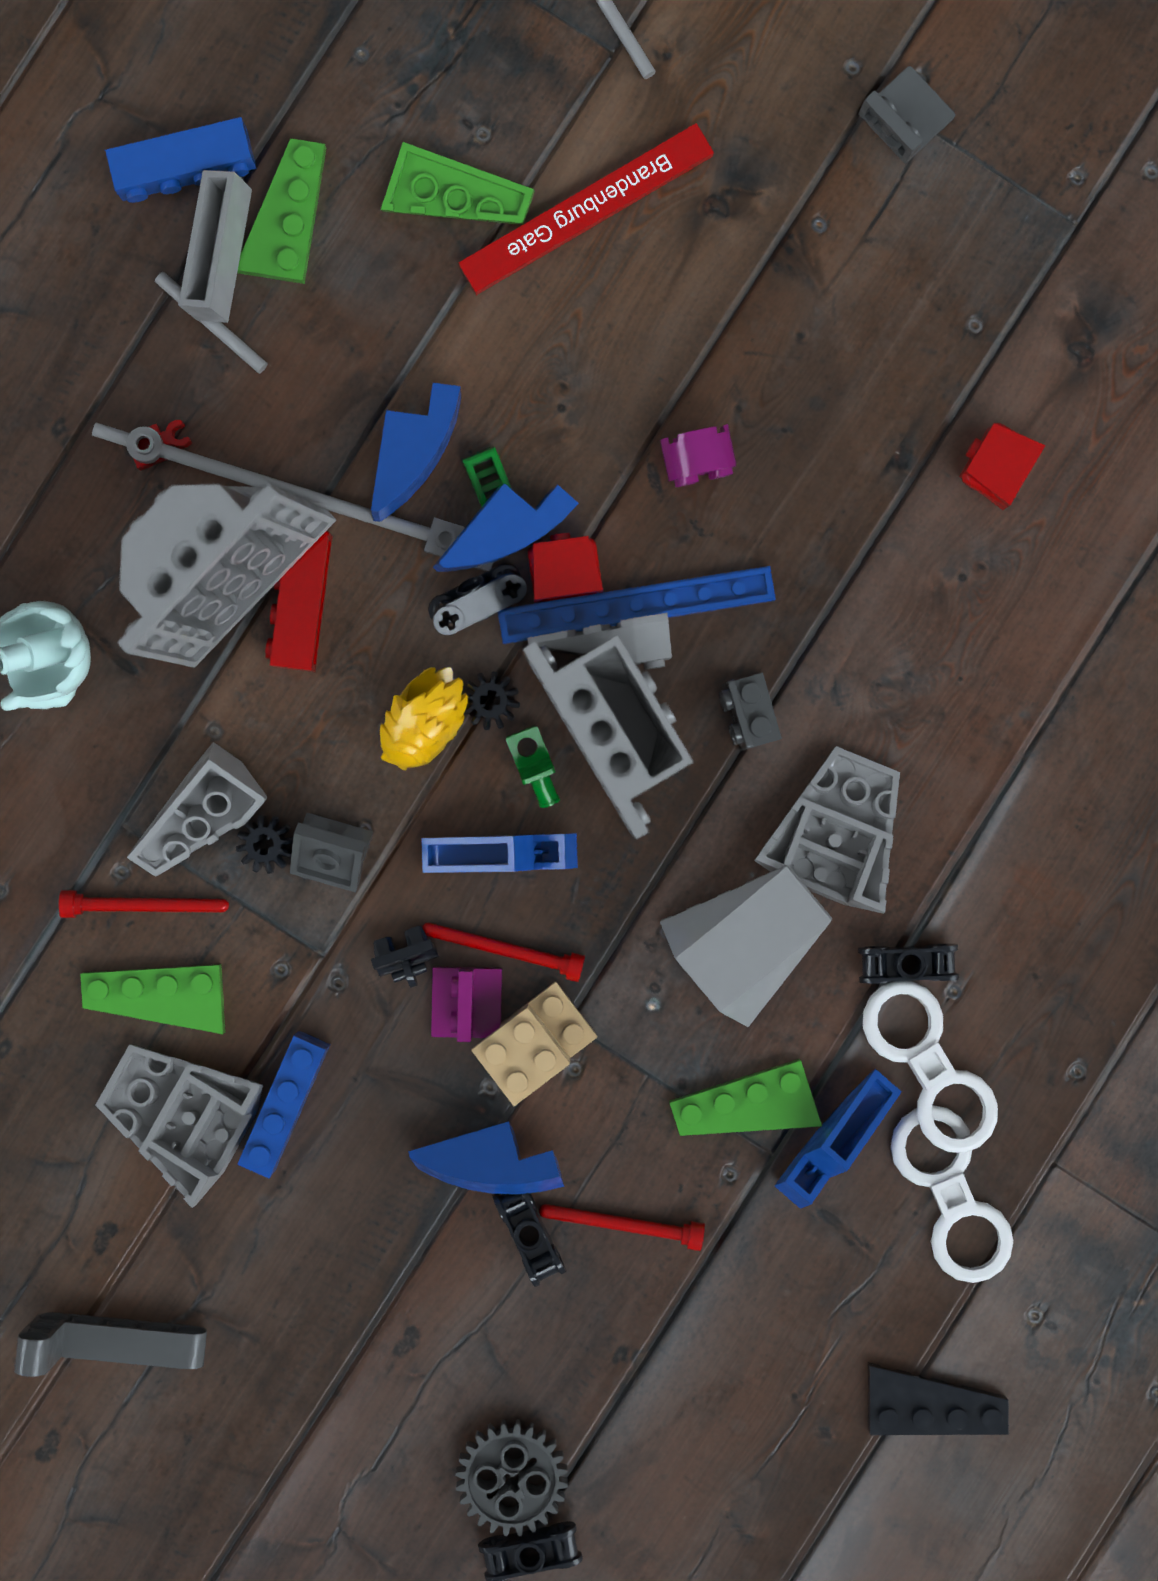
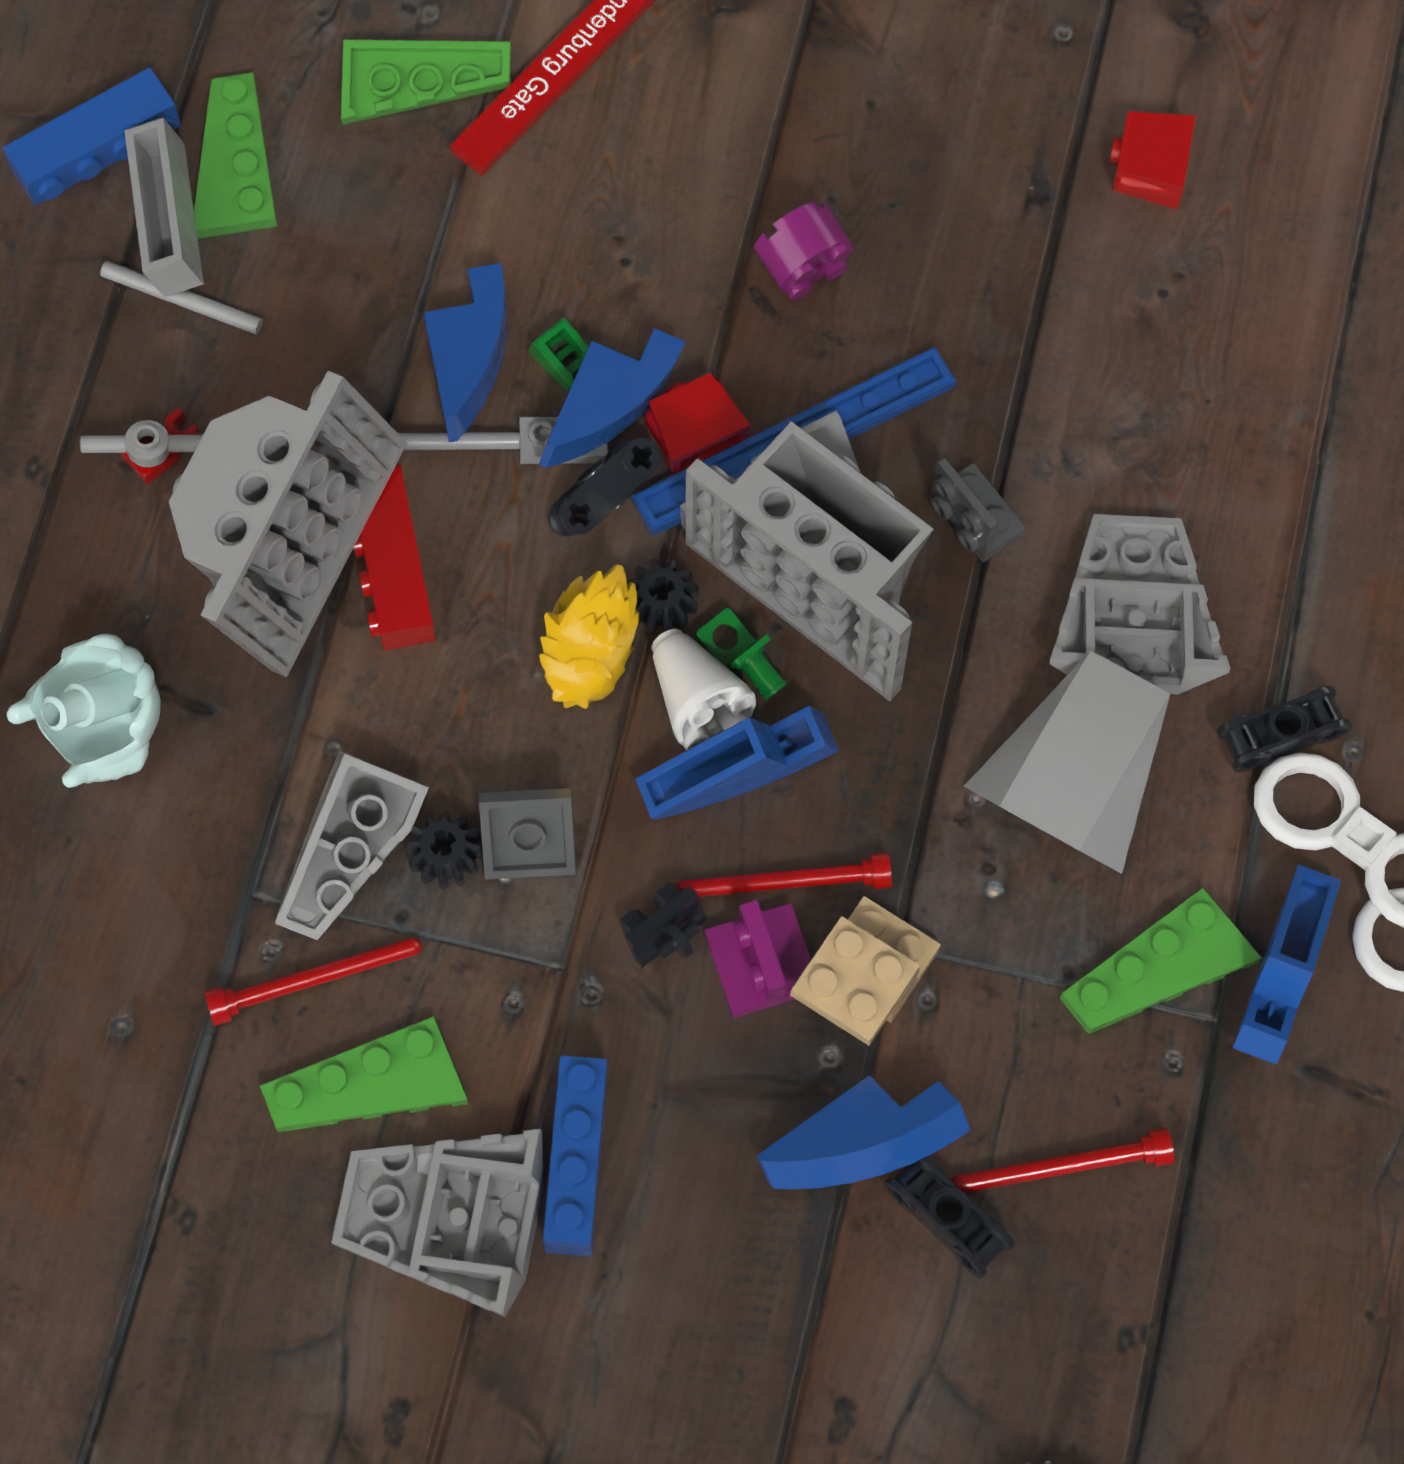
camera: 25 degrees left, 20 degrees down
(490, 787) = (698, 689): none -> white cone

